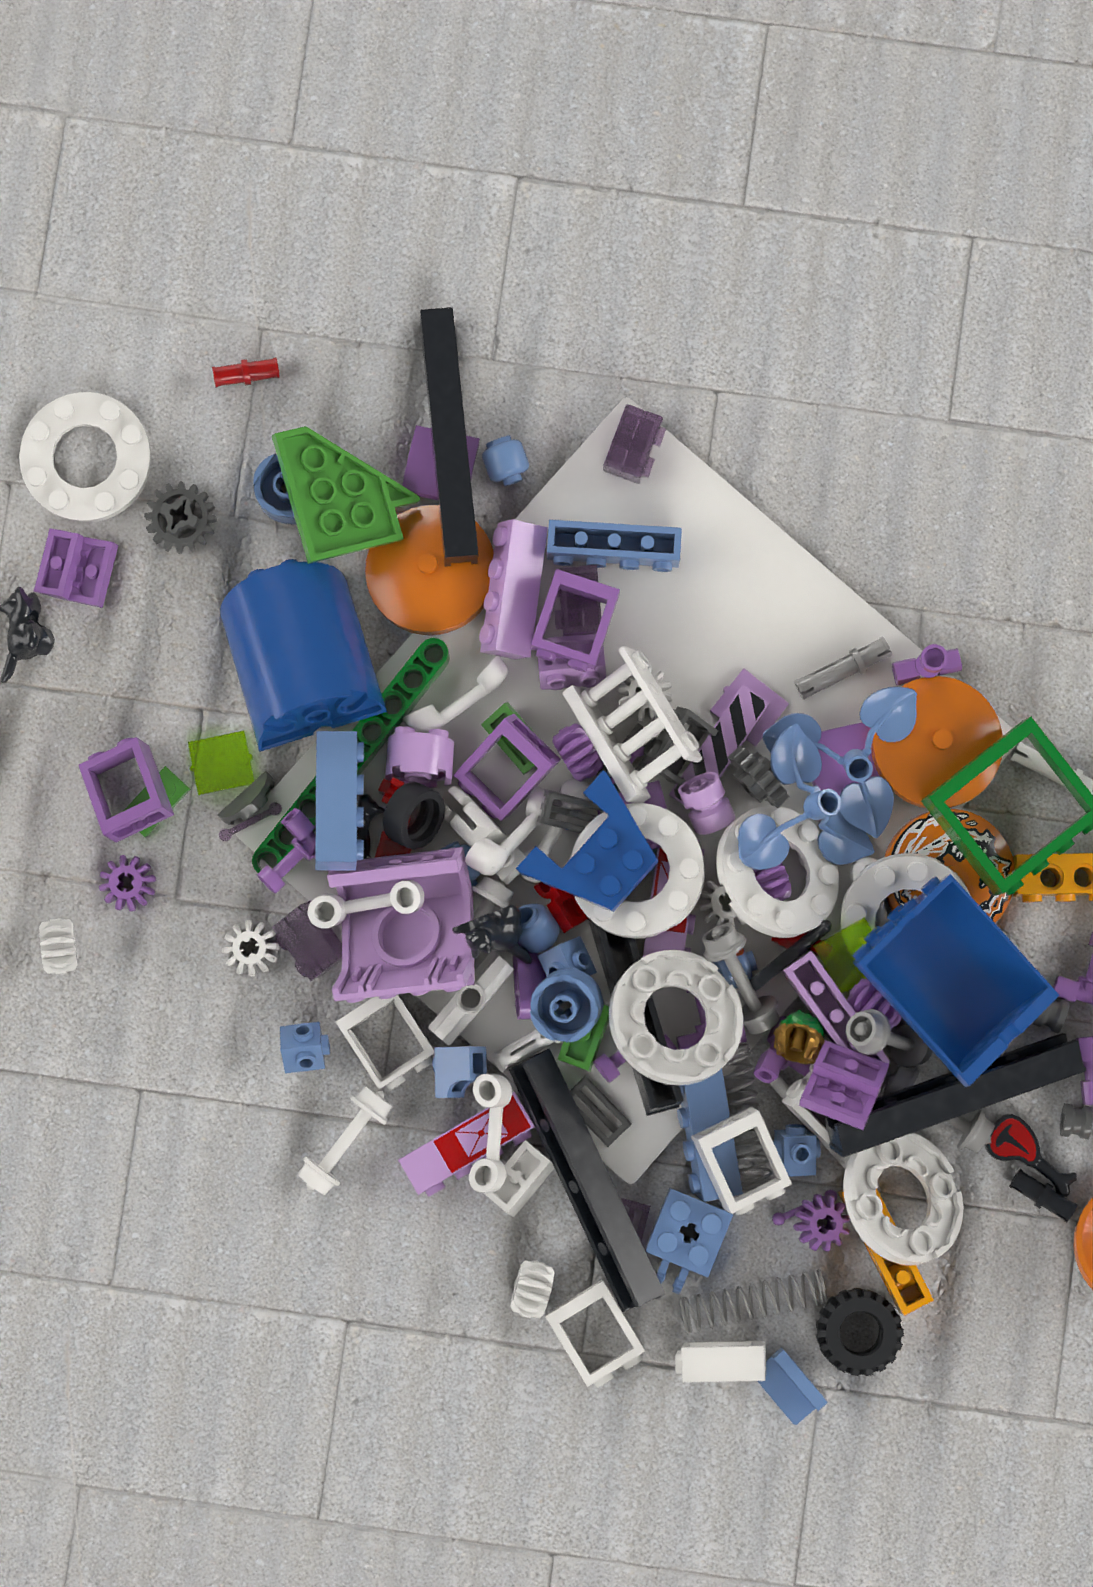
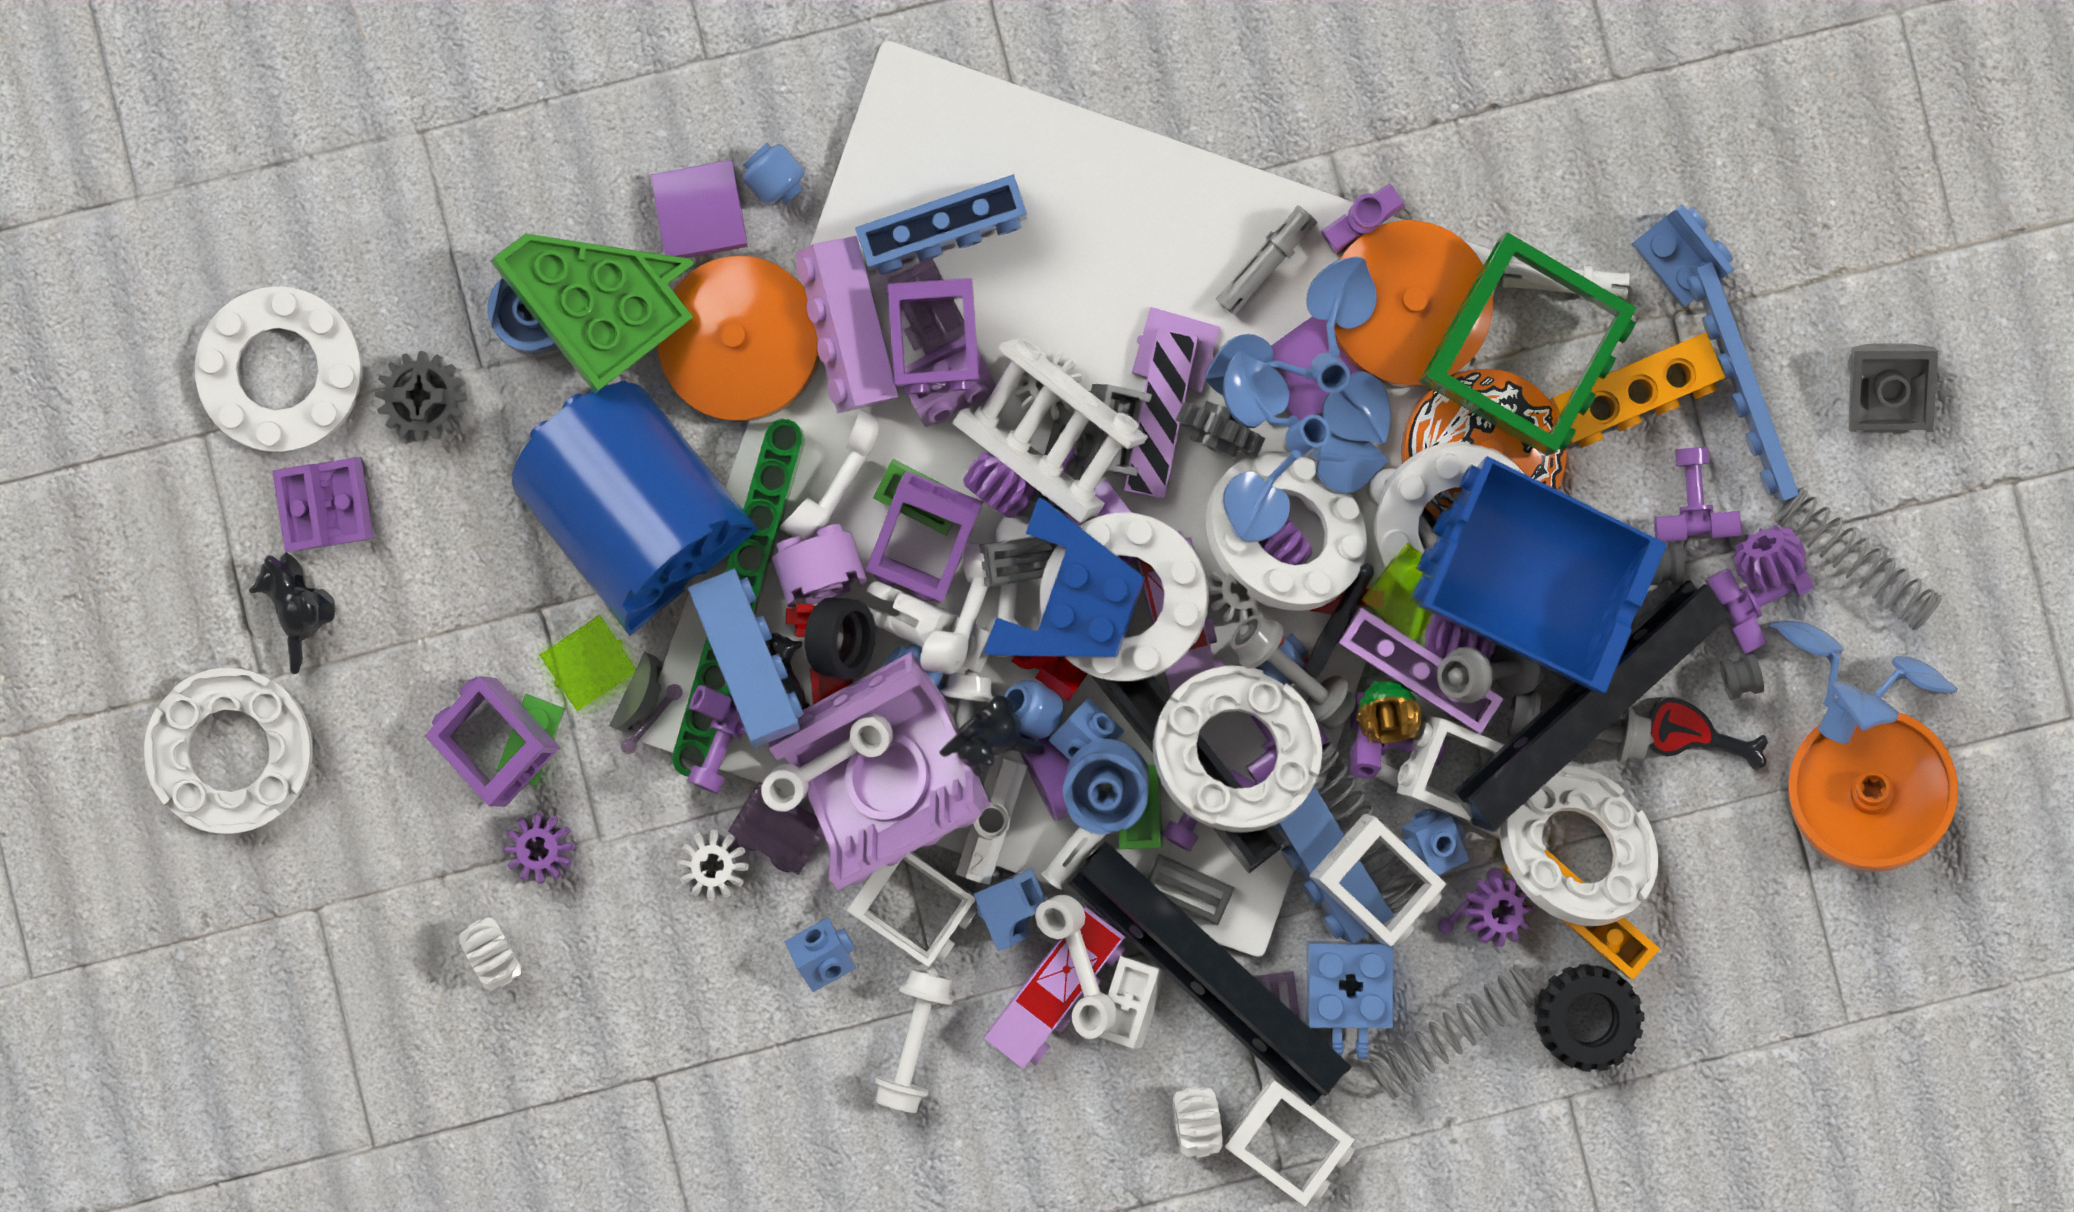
camera: 25 degrees left, 5 degrees up
(246, 372) = (425, 192): red pin -> none
(448, 436) = (696, 173): black tile -> none
(634, 443) = (916, 95): clear purple brick -> none
(707, 803) = (1178, 489): lavender wheel -> none
(721, 1361) = (1446, 1115): white window -> none
(790, 1387) = (1533, 1111): medium blue panel -> none
(844, 1085) = (1461, 748): medium lavender slope -> none
(1043, 1195) = (1737, 776): black pin -> none

